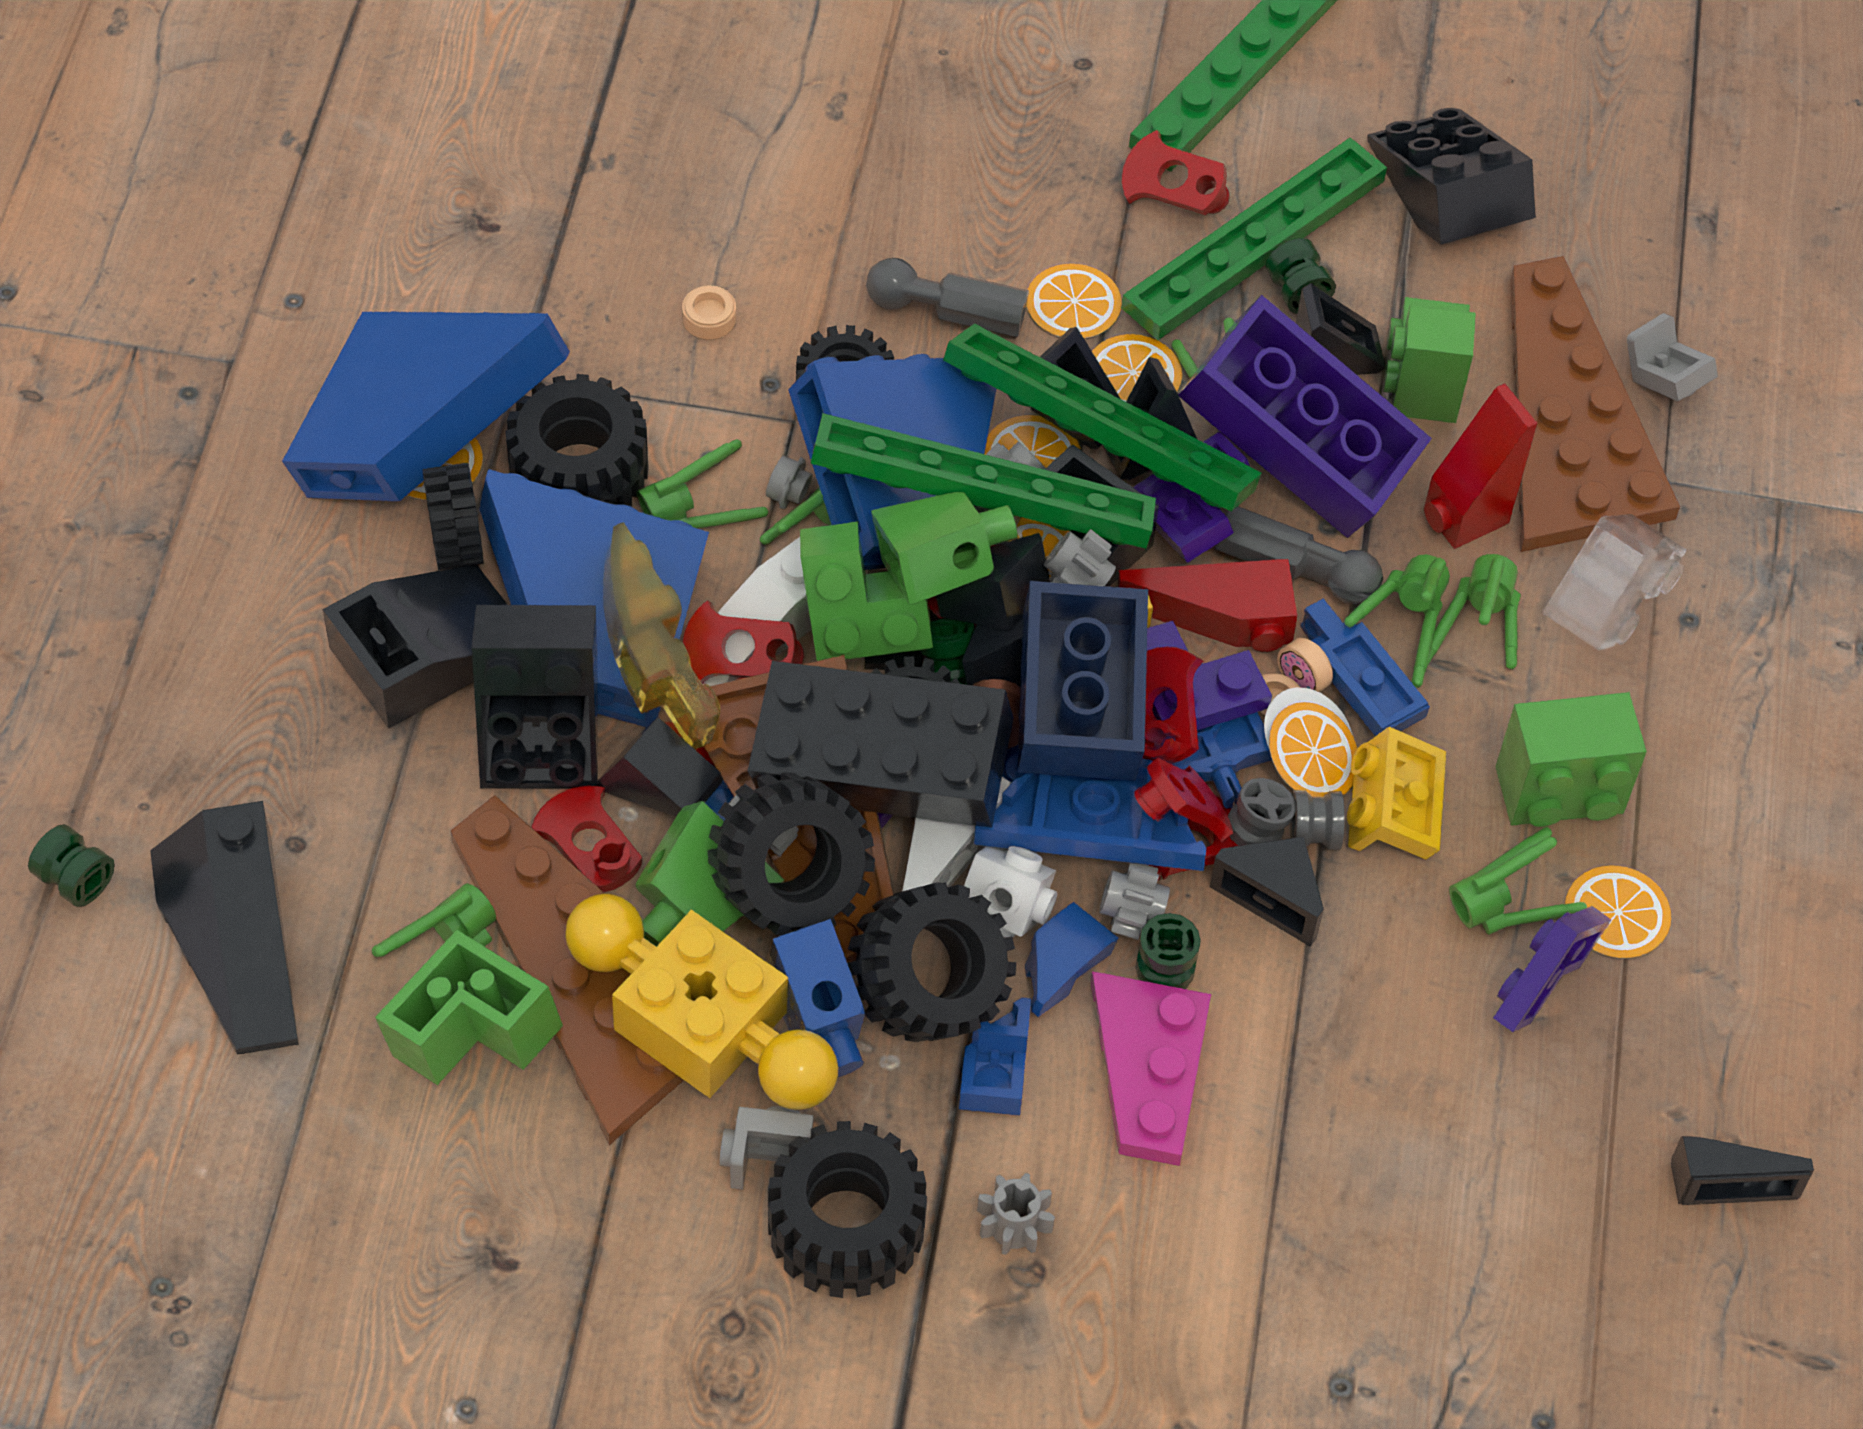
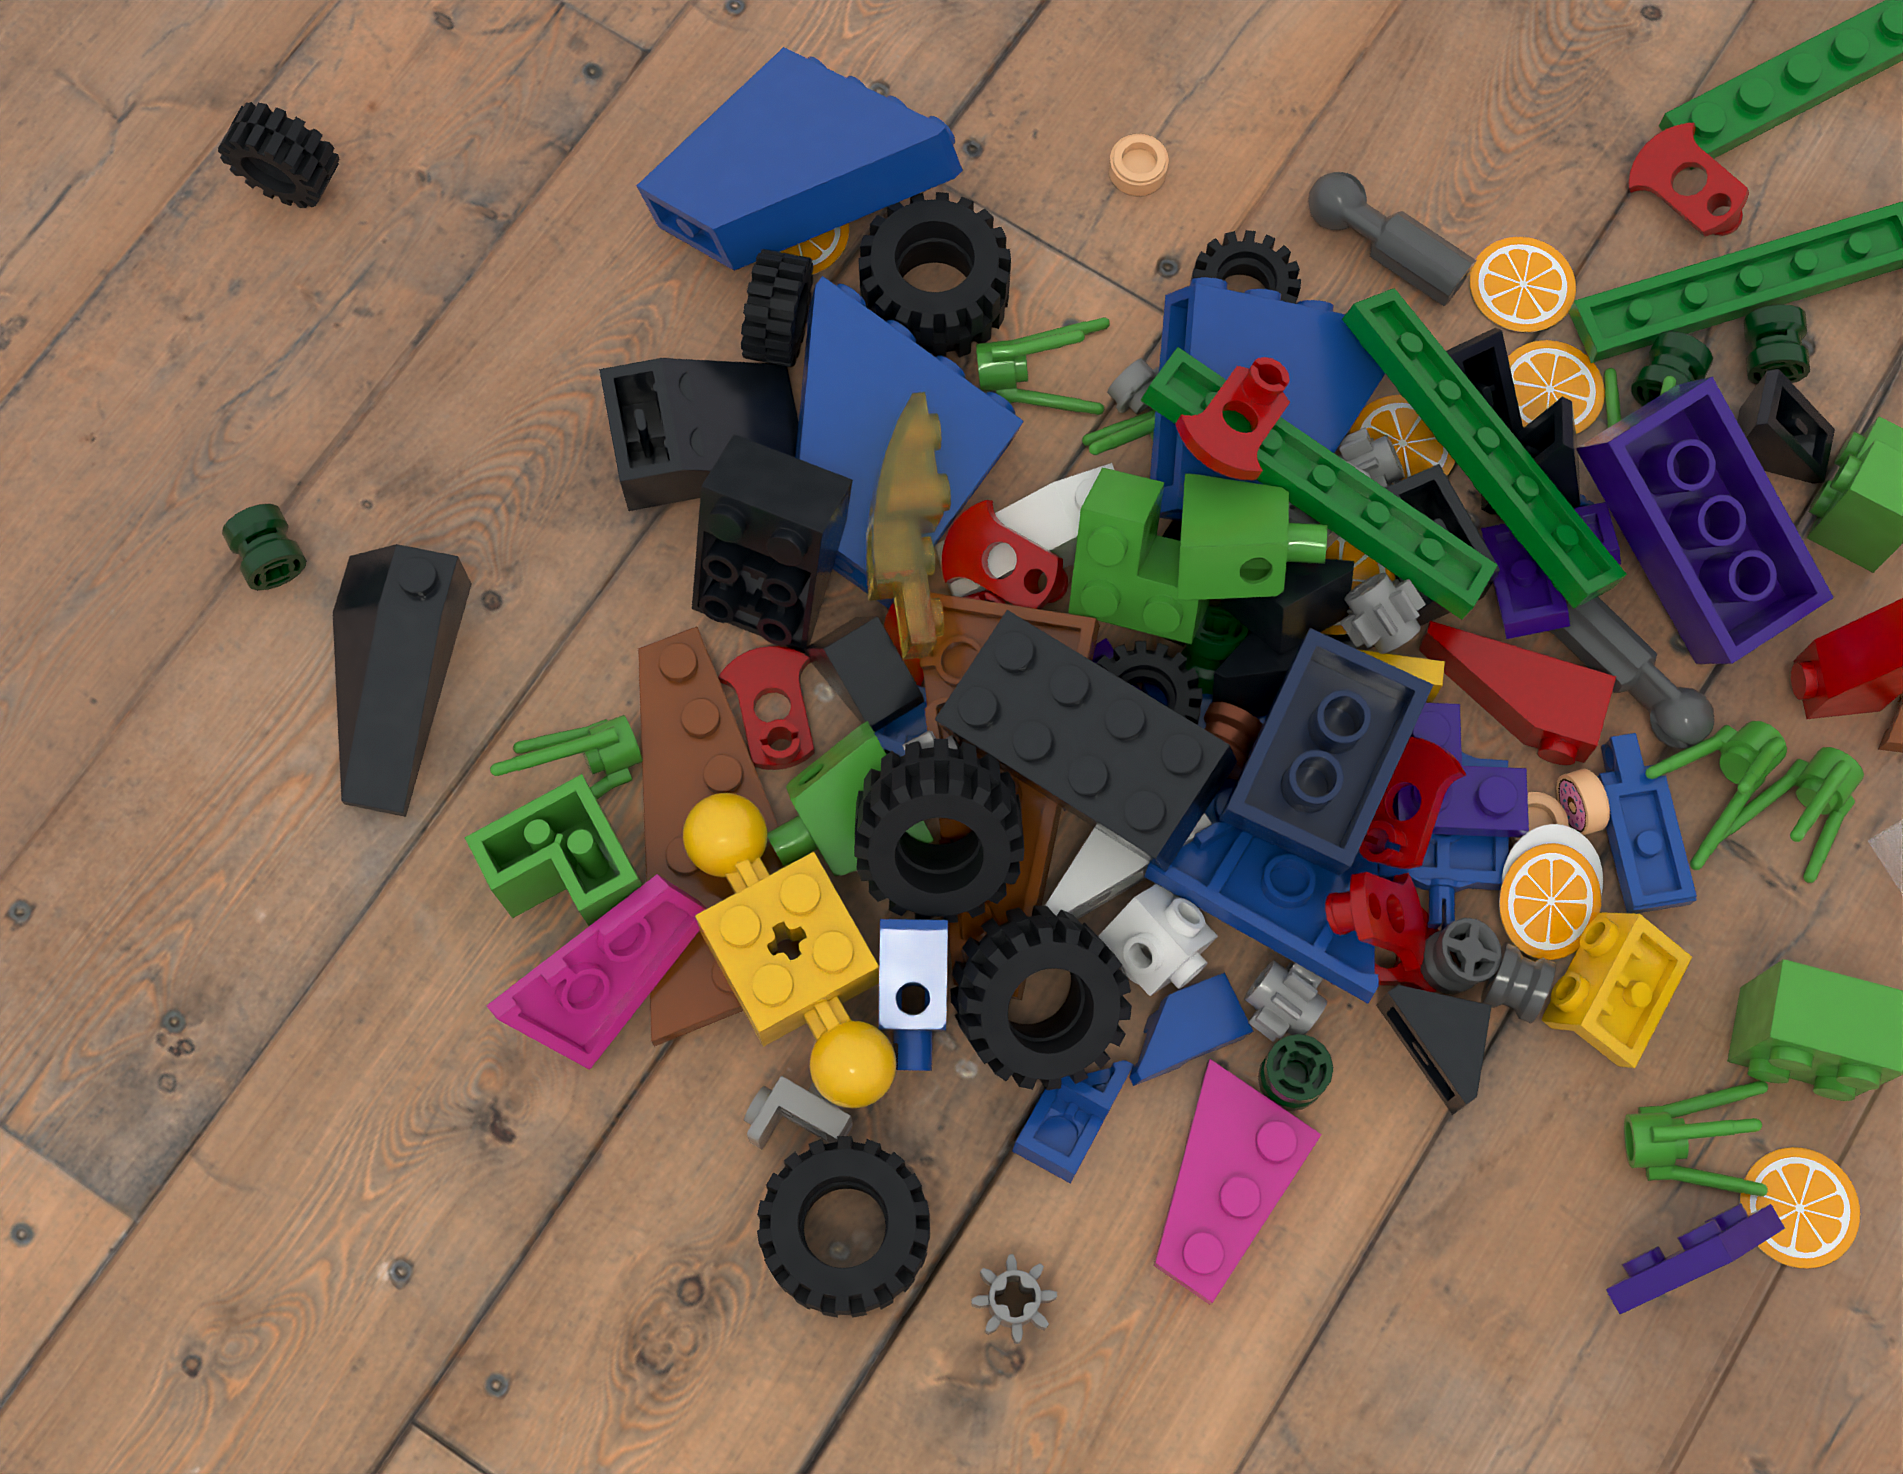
camera: 25 degrees right, 15 degrees up
(547, 1083) = (603, 974): none -> dark pink wing
(904, 428) = (1254, 394): none -> red piece
(1216, 307) = (1674, 356): none -> dark green wheel

